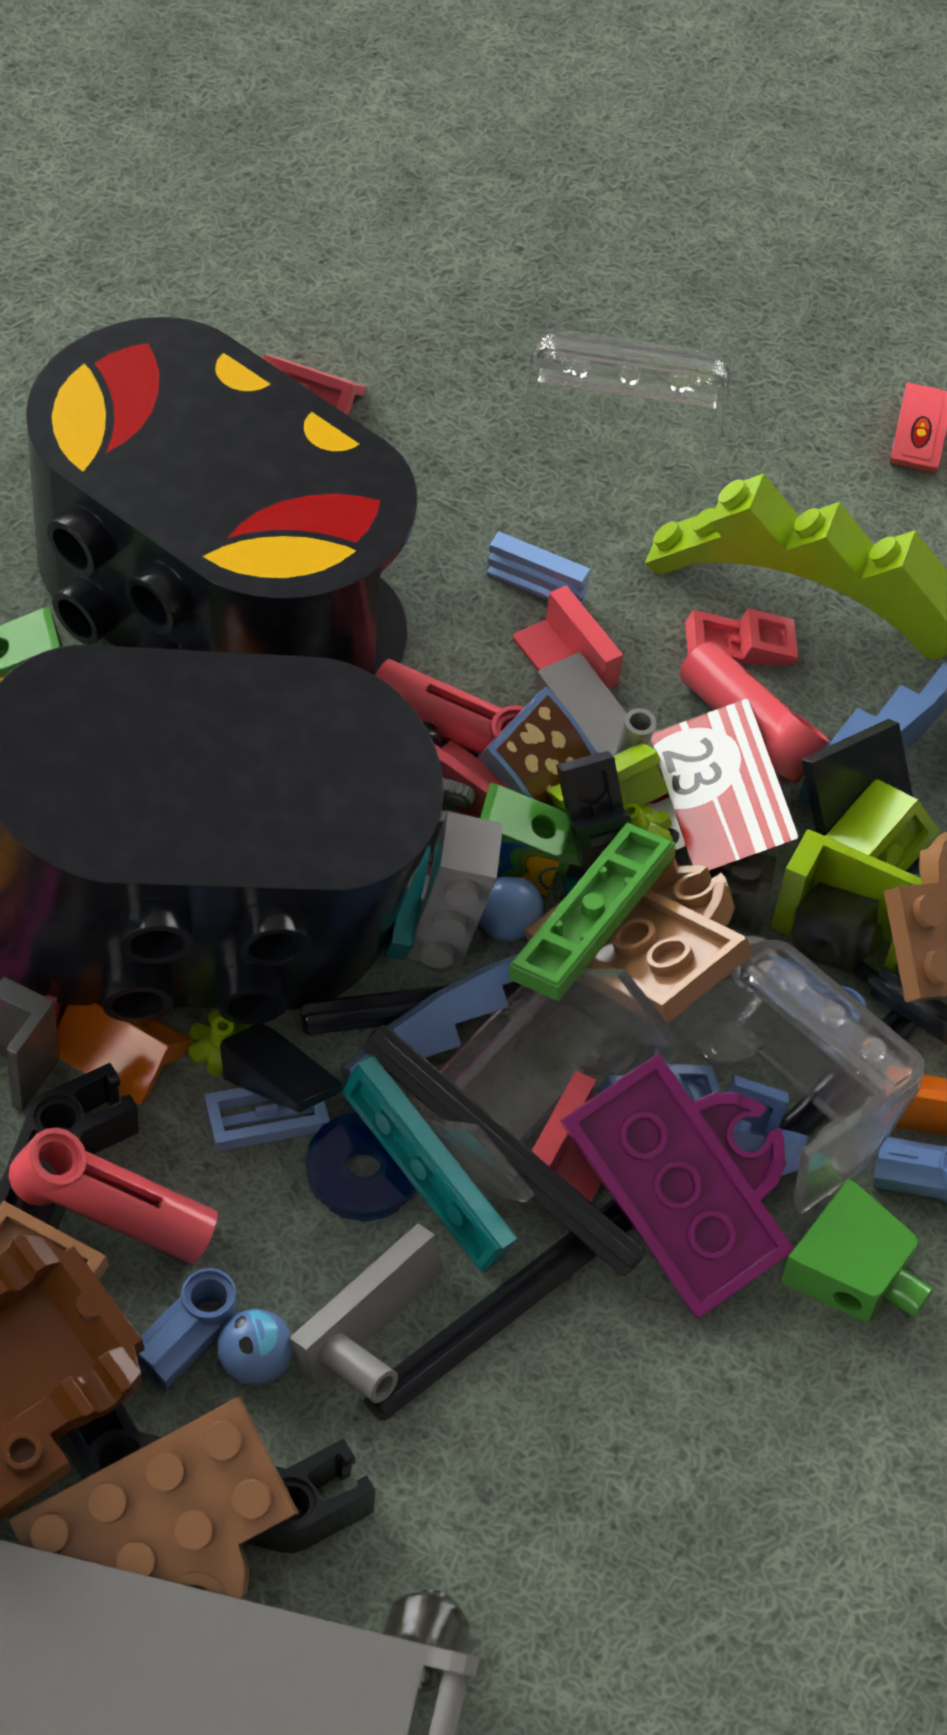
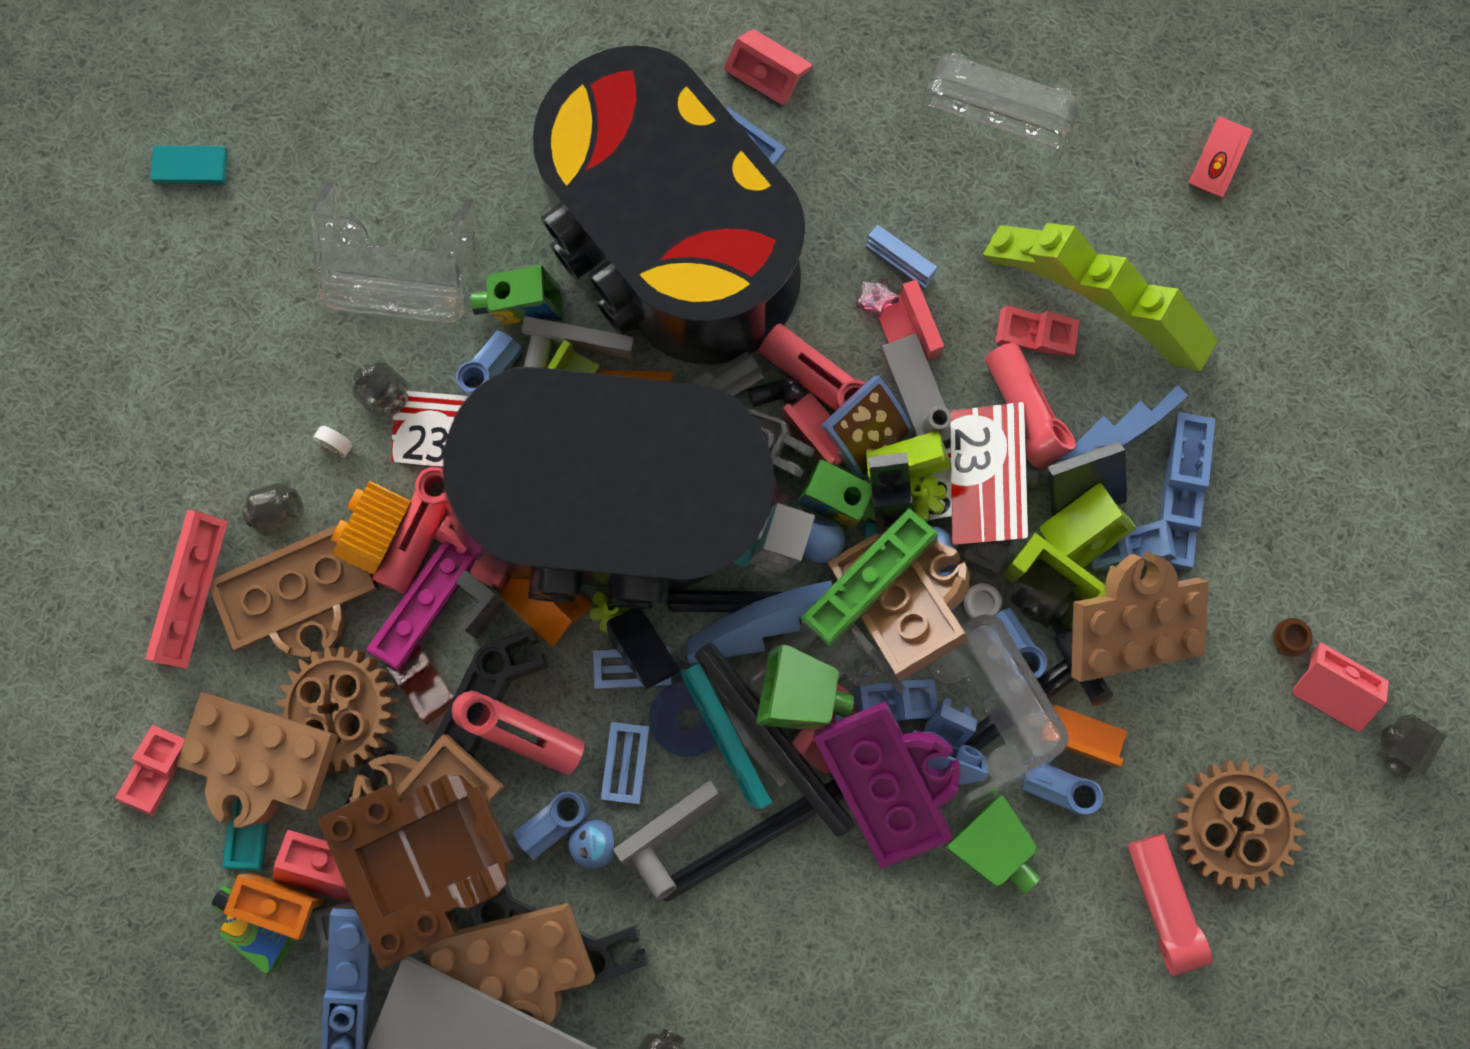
camera: 20 degrees right, 25 degrees up
(283, 1283) = (610, 759): none -> light blue tile
(515, 624) = (876, 296): none -> clear pink piece
(527, 1070) = (800, 691): none -> bright green torso

